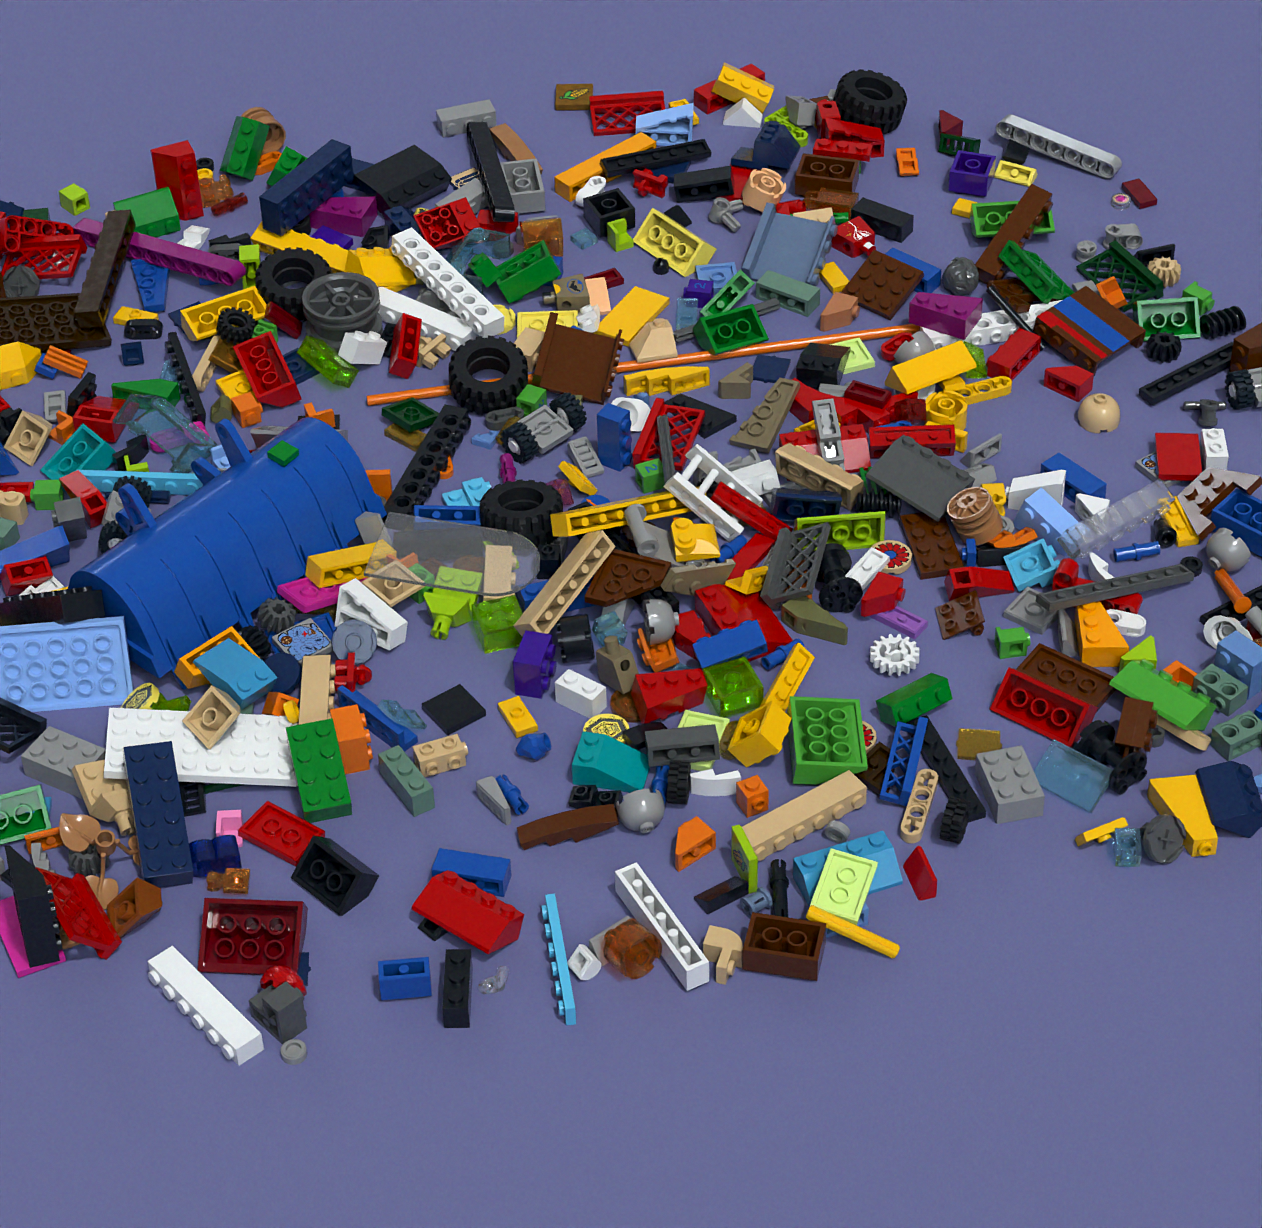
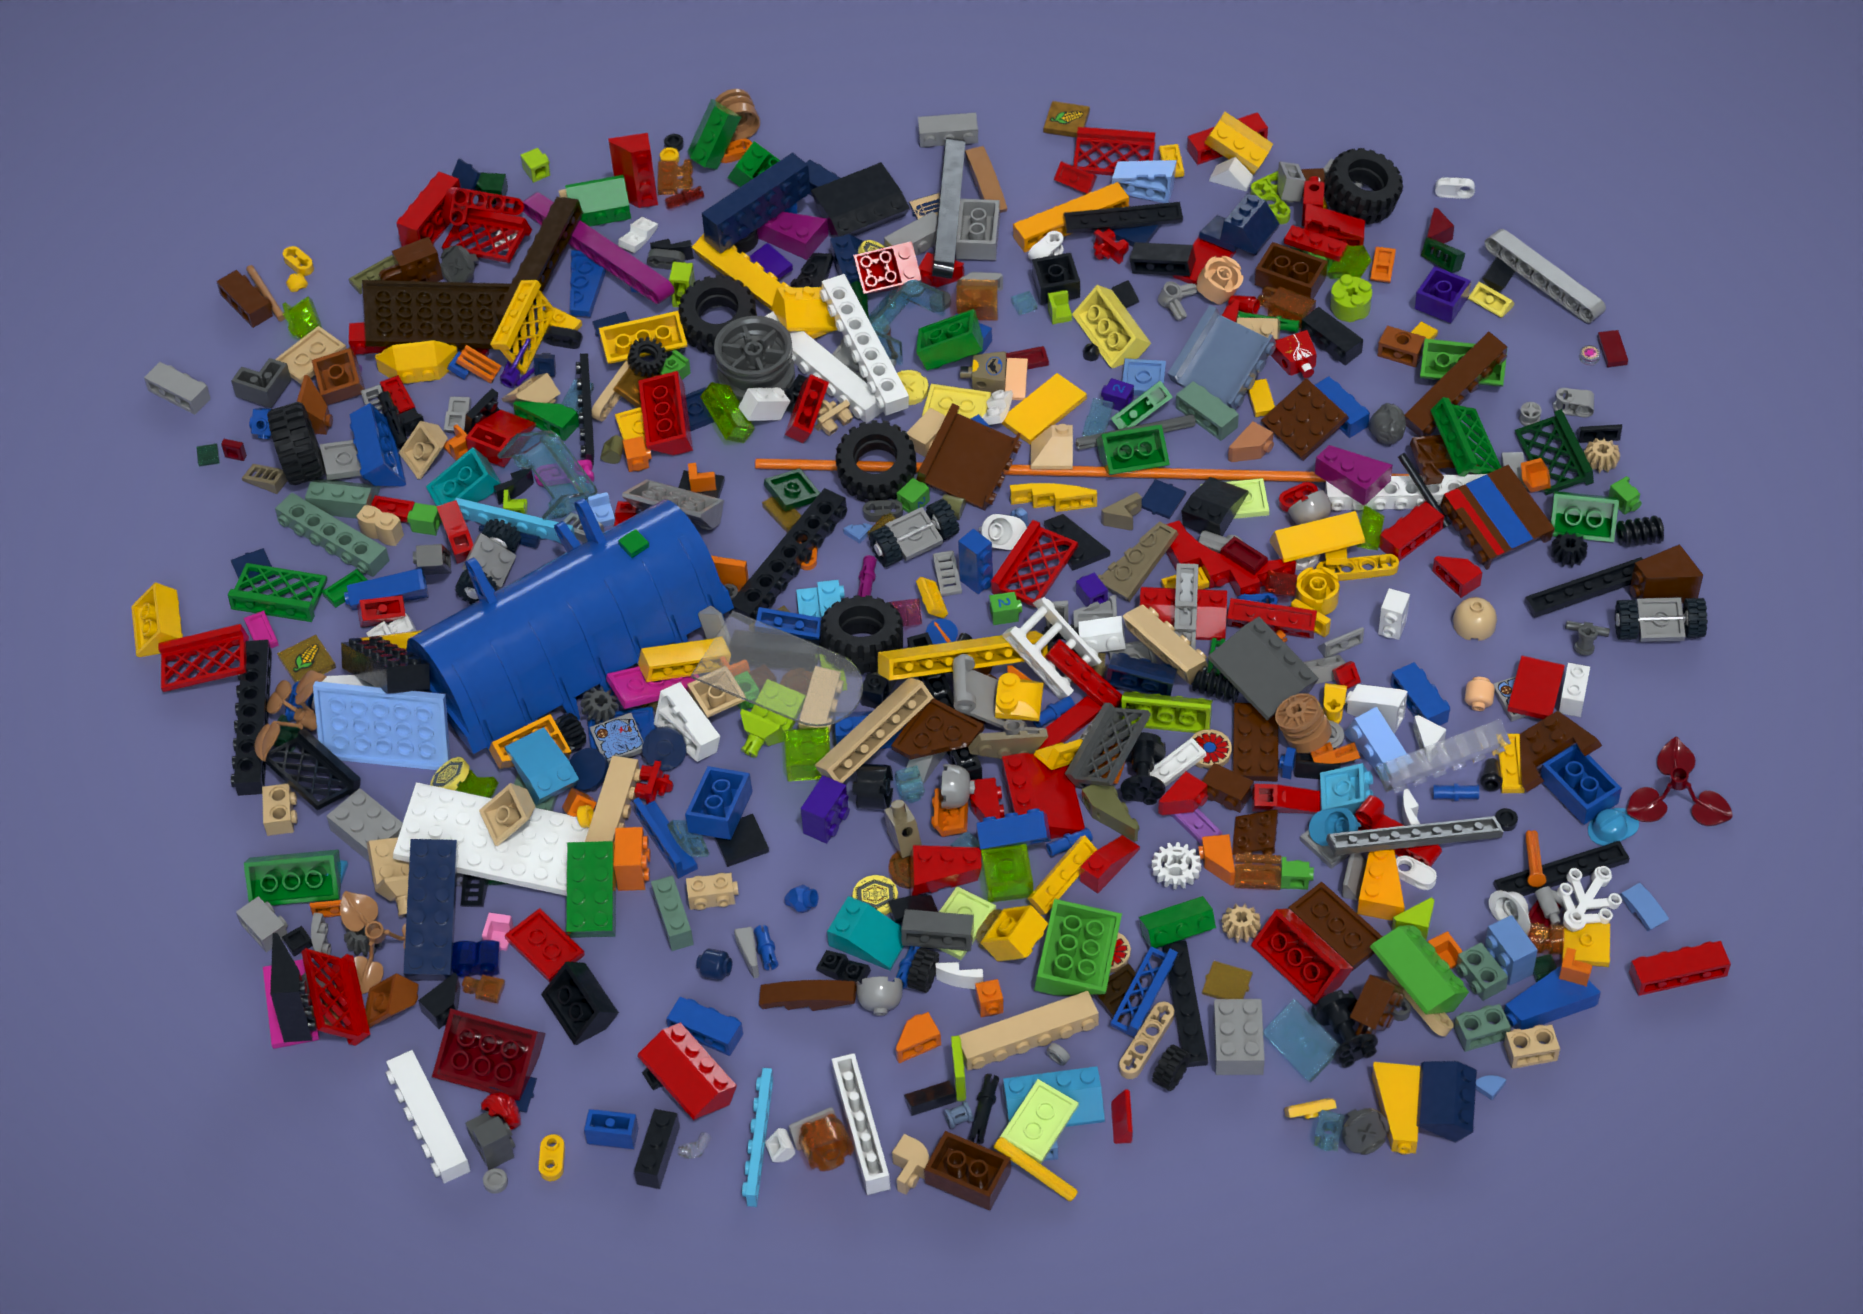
camera: 15 degrees right, 10 degrees up
(95, 317) = (516, 320): none -> yellow fence
(101, 366) = (510, 375): none -> dark purple plant
(133, 370) = (536, 389): none -> tan slope
(188, 901) = (440, 1000): none -> black slope
(283, 320) = (697, 353): dark red tile -> none
(347, 1014) = (551, 1155): none -> yellow plate
(425, 677) = (719, 802): none -> blue brick
(464, 816) = (714, 964): none -> dark blue head
(483, 267) = (908, 329): green slope -> none
(517, 716) = (797, 860): yellow plate -> none
(580, 694) = (861, 850): white brick -> none
(598, 136) = (1075, 177): none -> red plate
(665, 447) = (1022, 585): dark grey axle -> none
(730, 446) = (1091, 589): none -> dark purple brick
(825, 666) = (1107, 862): none -> red slope
(880, 164) = (1353, 263): none -> clear neon green bracket
(889, 187) = (1351, 298): none -> lime brick
(922, 583) = (1228, 787): none -> reddish brown brick
(933, 641) = (1218, 857): none -> orange slope
(946, 96) = (1451, 188): none -> white piece
(948, 218) = (1401, 346): none -> dark orange brick
(974, 646) = (1258, 876): none -> clear orange plate
(975, 690) = (1241, 923): none -> tan gear
(998, 474) = (1346, 674): none -> red plate
(1024, 593) = (1331, 821): none -> dark azure piece
(1025, 418) = (1394, 614): none -> white brick
(1127, 469) = (1479, 693): none -> light nougat head
(1226, 551) = (1541, 814): light grey cylinder -> none

